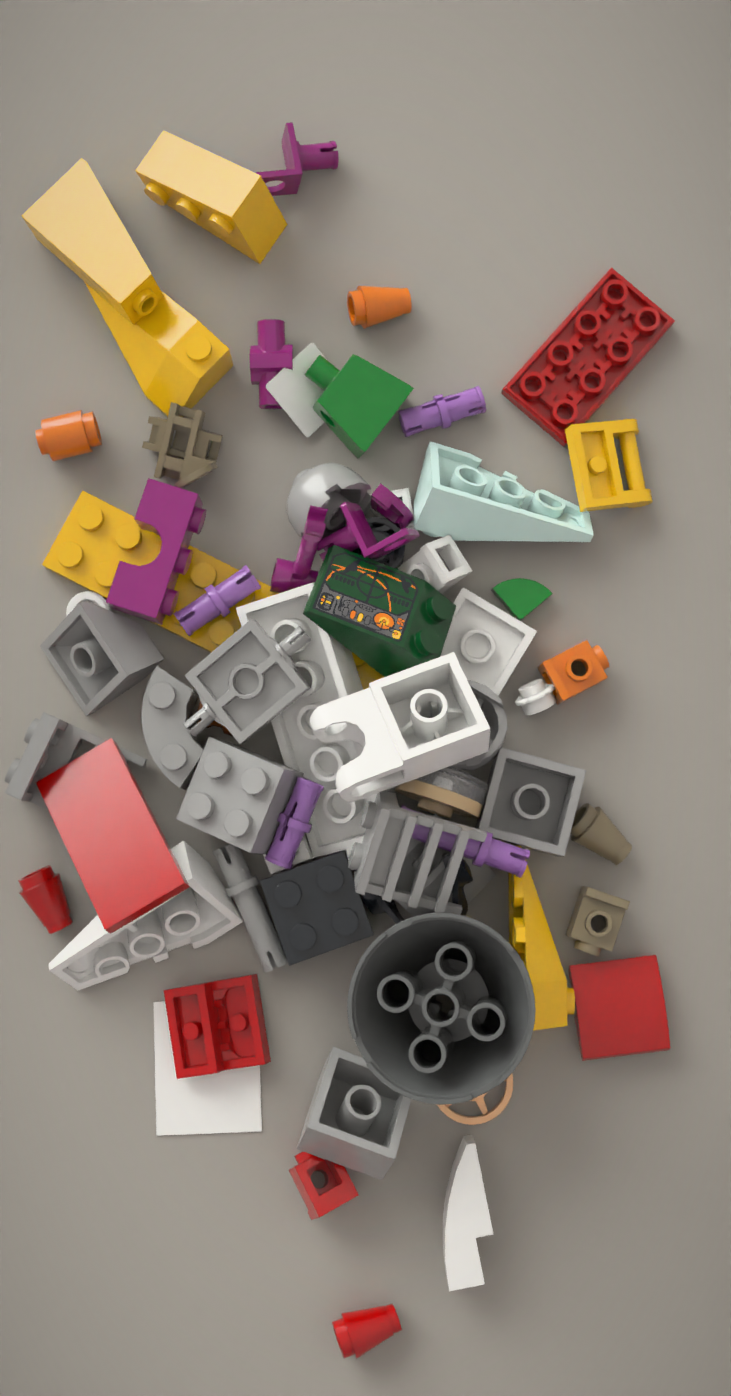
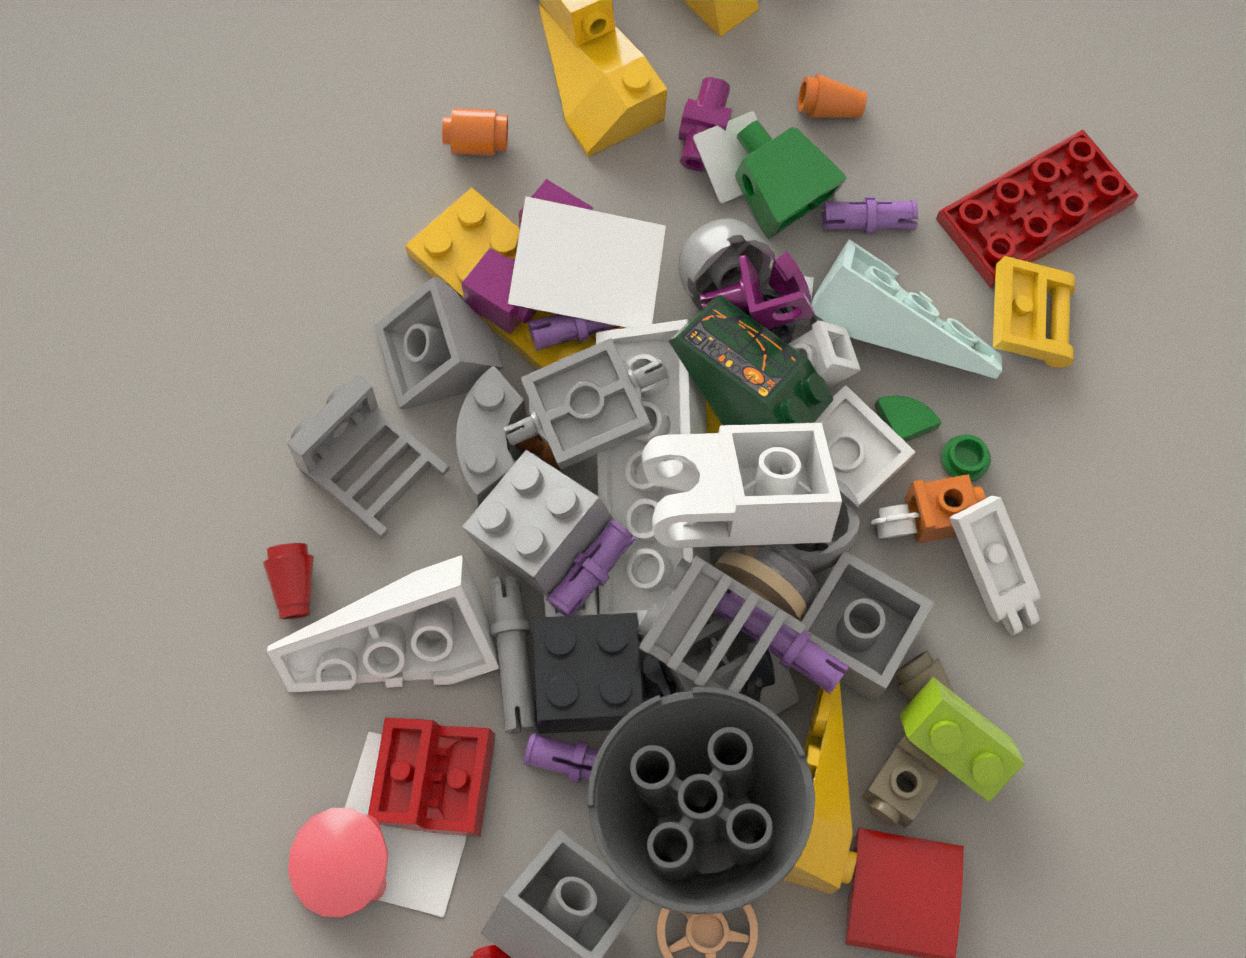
camera: 15 degrees right, 15 degrees down
(111, 836) = (386, 522): tile -> none
(165, 1118) = (338, 862): none -> coral dish
(189, 443) = (598, 174): dark tan piece -> none
(209, 549) = (586, 264): none -> white sticker
(297, 573) = (694, 287): magenta brick -> none
(319, 979) = (560, 756): none -> medium lavender pin
(580, 619) = (966, 456): none -> green plate
(628, 710) = (998, 563): none -> white hinge
(634, 876) = (961, 739): none -> lime brick

